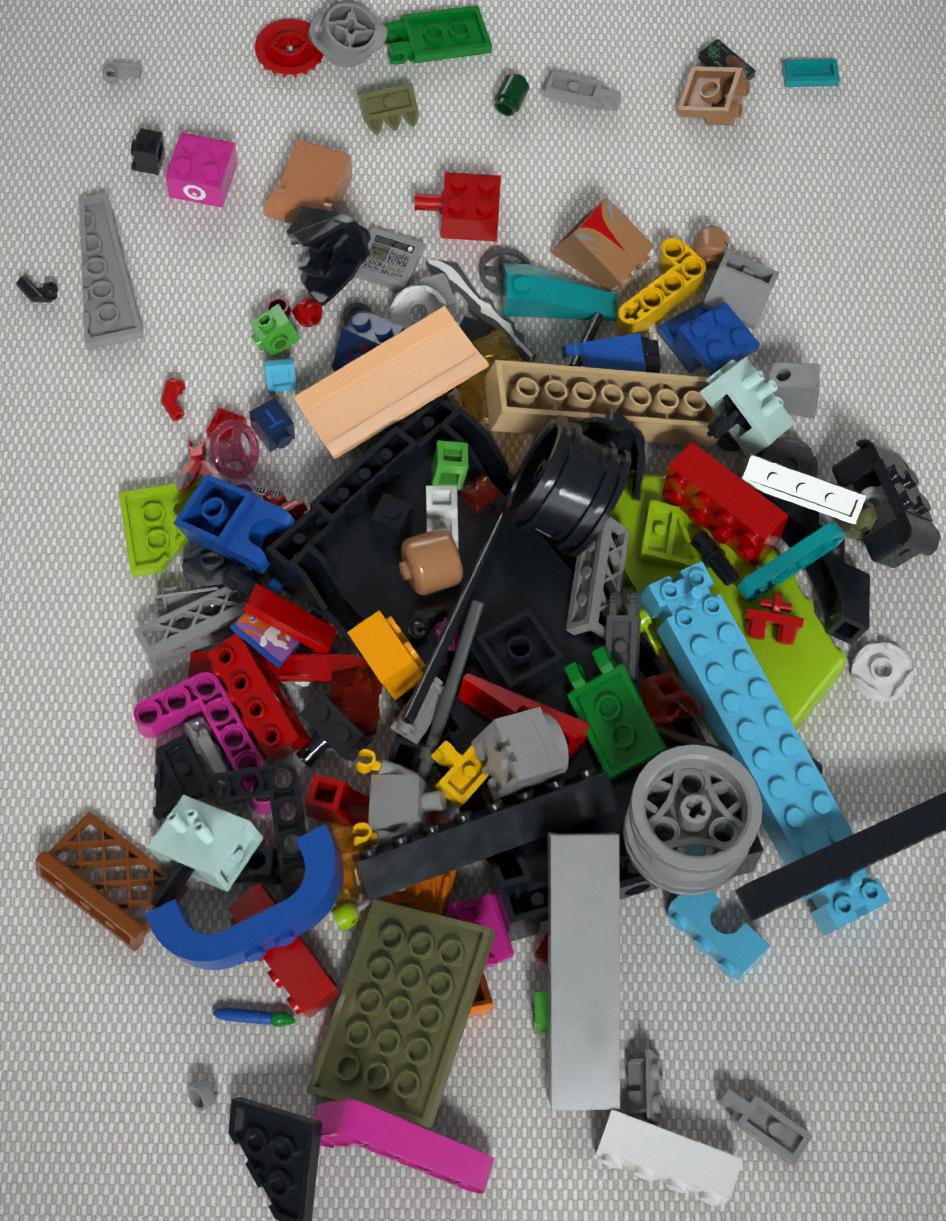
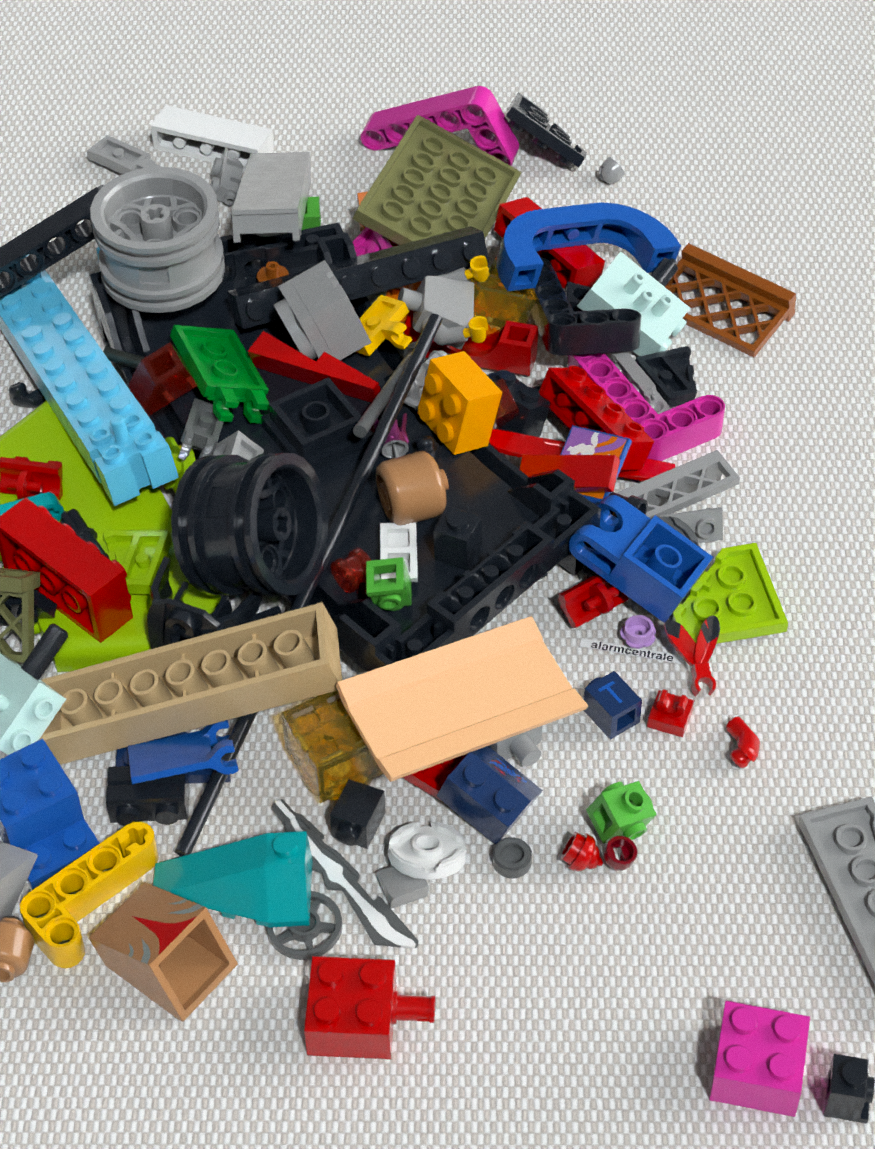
camera: 175 degrees left, 15 degrees down
(232, 450) = (660, 670): clear pink piece -> none
(280, 375) = (608, 766): medium azure tile -> none
(311, 179) = (590, 1032): nougat piece -> none
(335, 251) = (566, 907): black piece -> none
(390, 260) = (471, 940): light grey tile -> none

